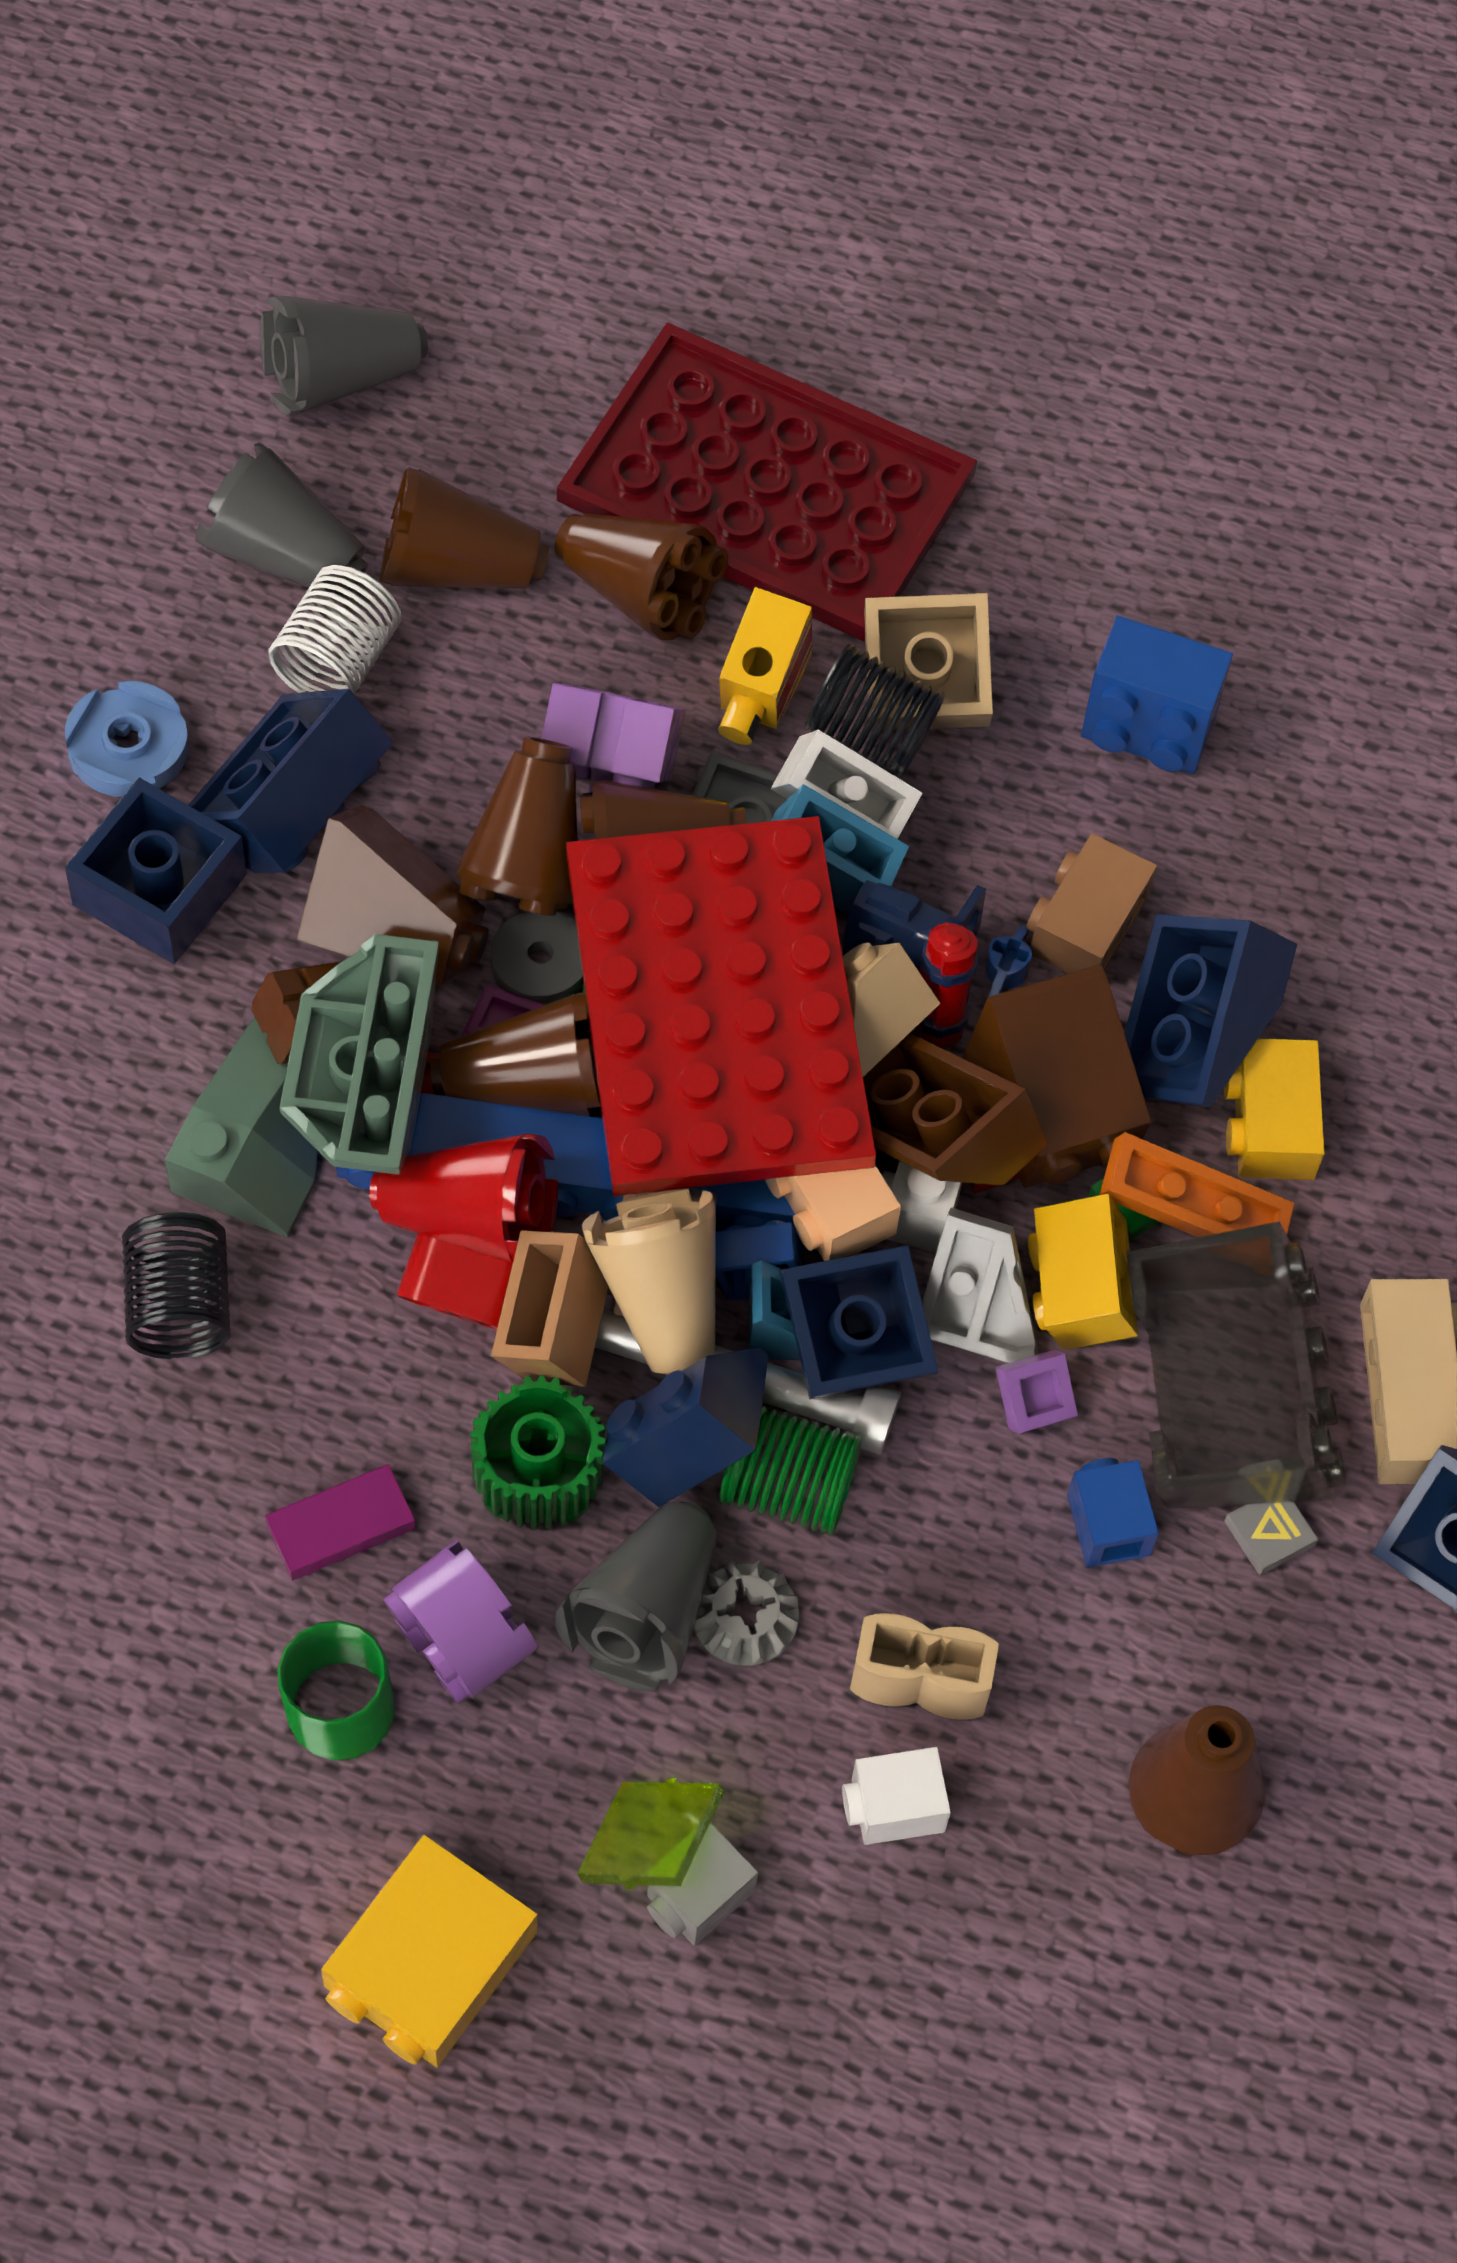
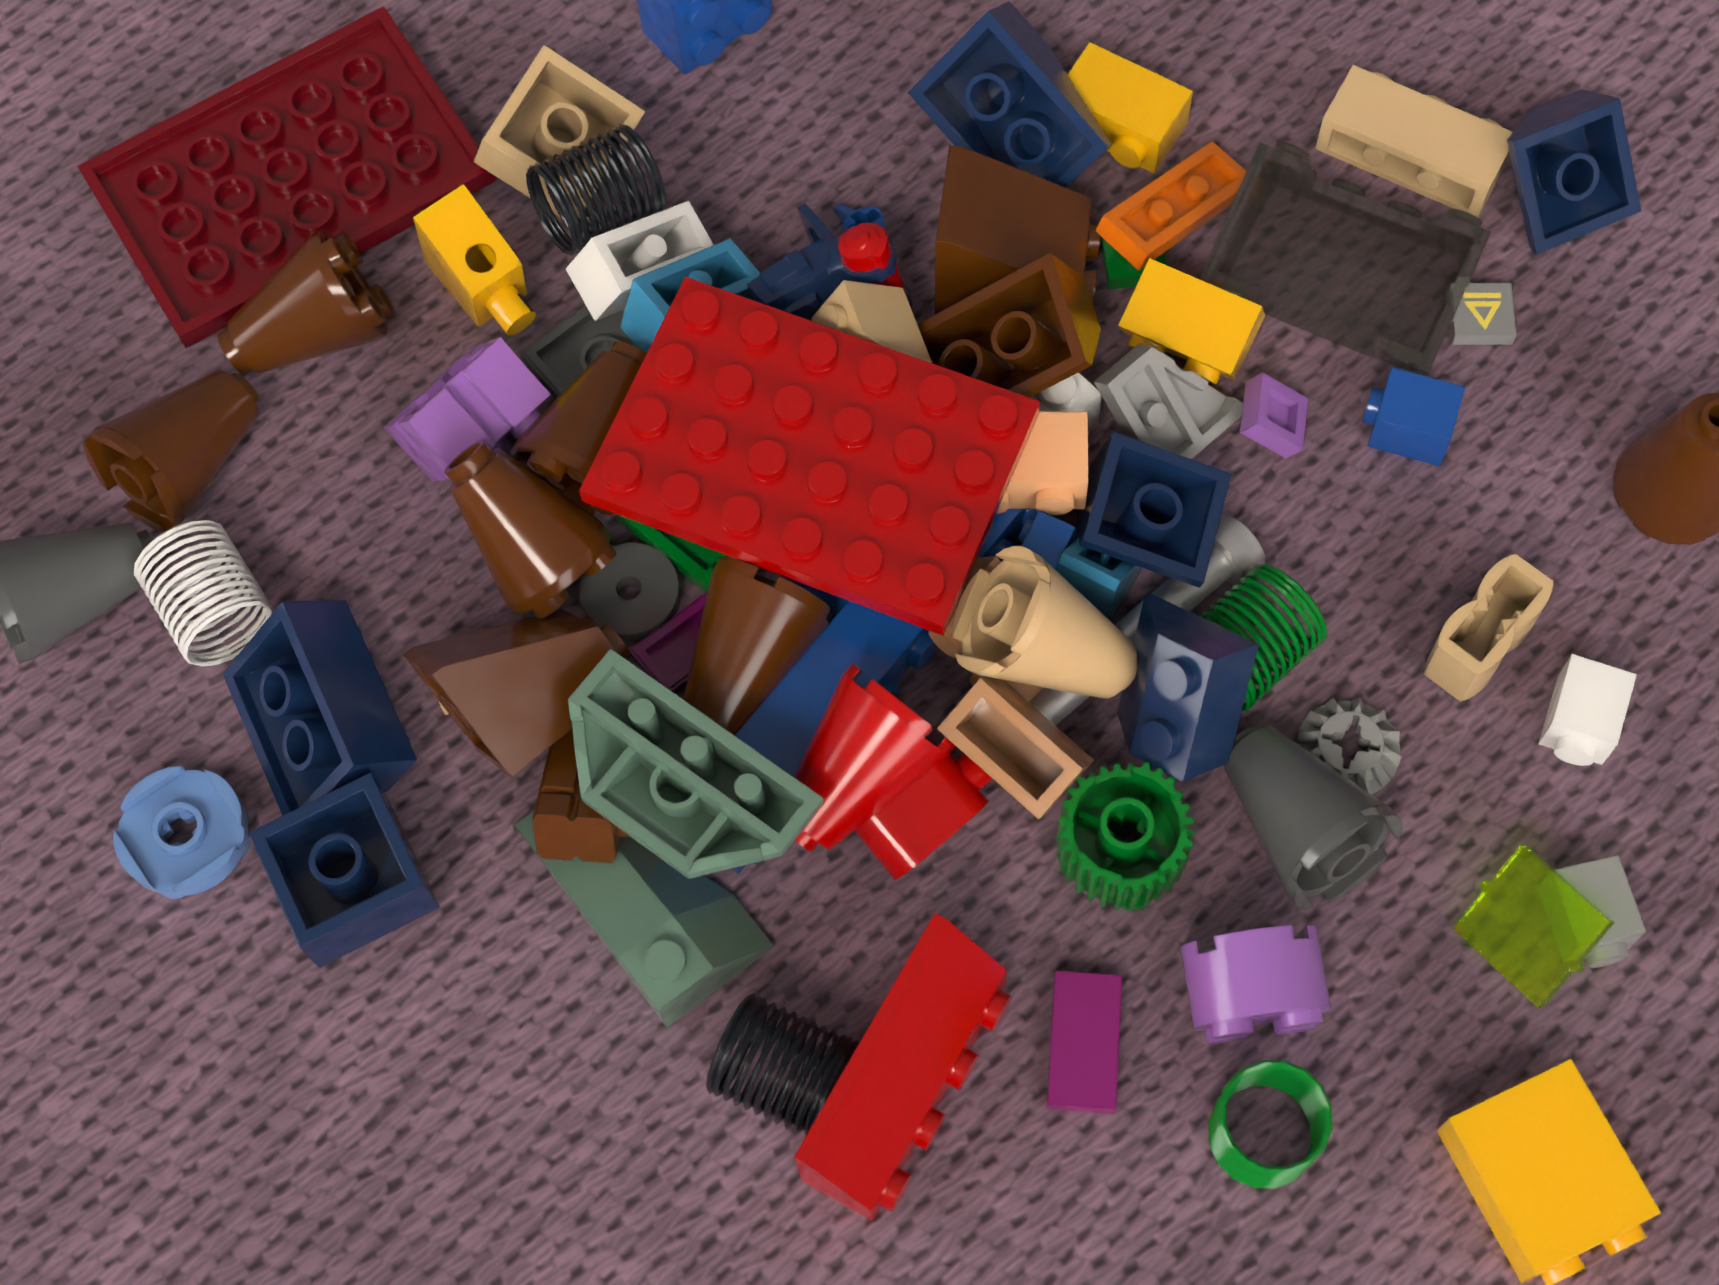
camera: 50 degrees left, 5 degrees up
(222, 1375) = (903, 1070): none -> red slope
(1092, 906) = (858, 143): medium nougat brick -> none

